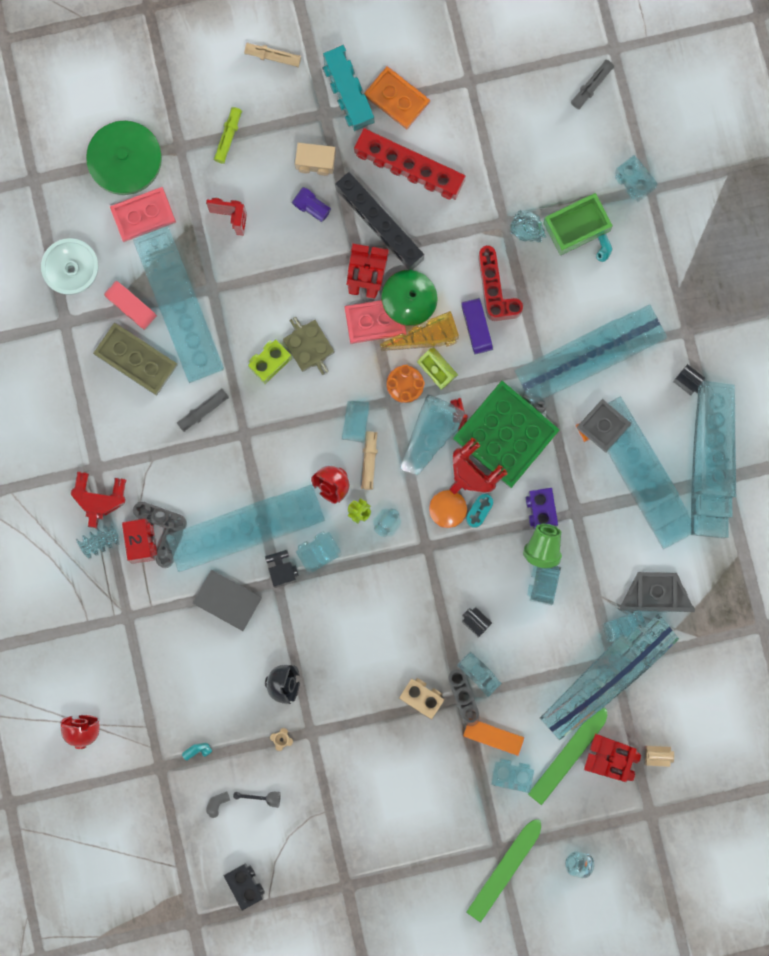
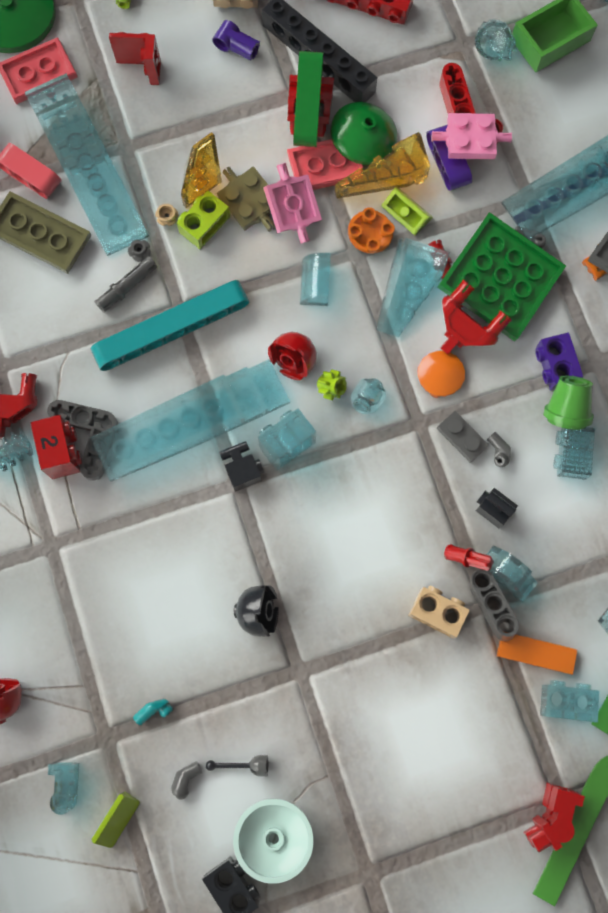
camera: 10 degrees left, 5 degrees down
(127, 799) = (65, 786): none -> clear light blue leg
(163, 828) = (115, 820): none -> lime slope
(210, 381) = (139, 256): none -> dark grey plate
(227, 600) = (176, 512): dark grey tile -> none
(235, 448) = (169, 325): none -> teal beam
(245, 353) = (162, 211): none -> tan plate
(269, 324) = (200, 170): none -> clear yellow wedge
(275, 868) = (269, 860): none -> light aqua dish
(286, 740) = (261, 692): tan plate -> none
(343, 356) = (292, 203): none -> bright pink plate
(364, 270) = (308, 98): none -> green beam
(369, 460) = (337, 317): tan pin -> none
(449, 659) = (468, 557): none -> axle
(458, 562) = (462, 436): none -> dark grey plate
(483, 513) = (485, 374): teal beam -> none
(487, 864) = (556, 822): none -> red hips
(488, 576) = (502, 450): none -> dark grey arm
(495, 314) = (471, 136): none -> bright pink plate
(605, 250) = (588, 59): teal arm -> none

